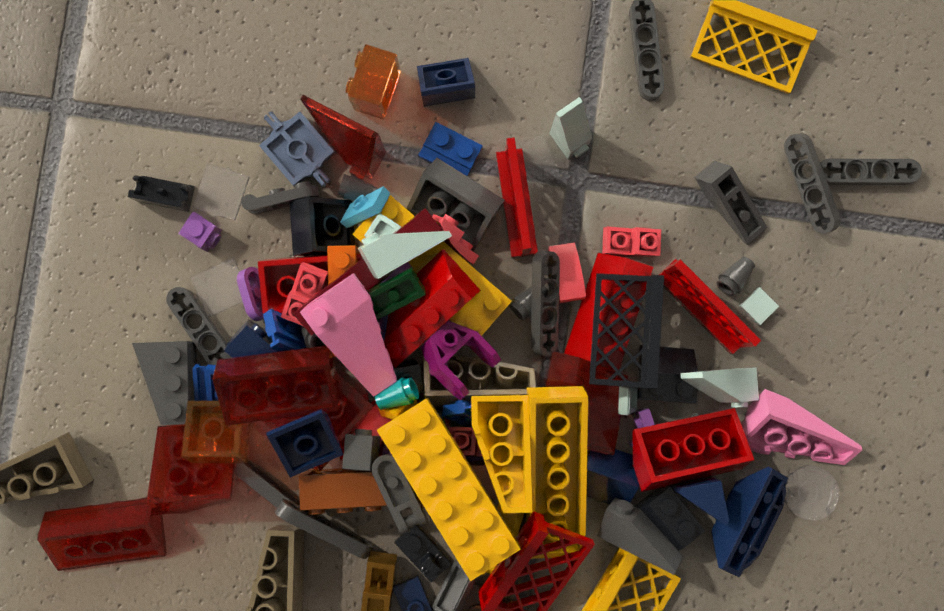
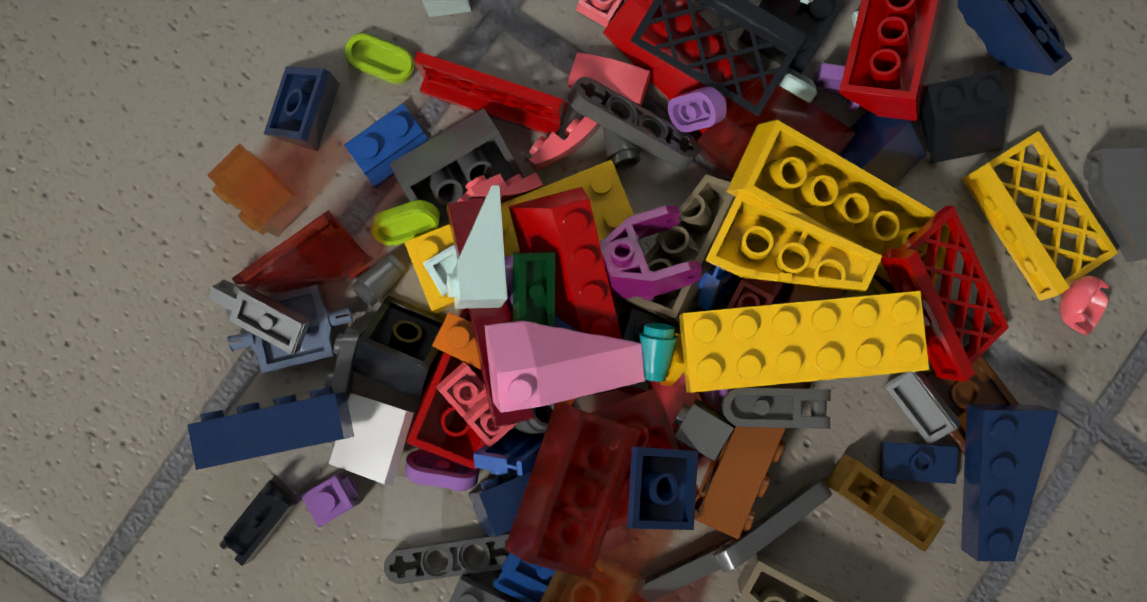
camera: 60 degrees left, 0 degrees up
(222, 170) = (270, 430): none -> dark blue wedge
(251, 237) = (377, 439): none -> white tile
(294, 126) = (261, 315): none -> hinge
(365, 207) = (406, 279): medium azure plate -> none
(403, 187) = (405, 222): none -> lime tile
(423, 553) = (859, 422): black hinge -> none
(500, 258) = (554, 149): none -> coral slope
(504, 115) = (380, 58): none -> lime tile
(574, 341) = (697, 109): none -> medium lavender plate
(637, 534) = (962, 153): dark grey slope -> none
(707, 495) = (960, 46): dark blue slope -> none

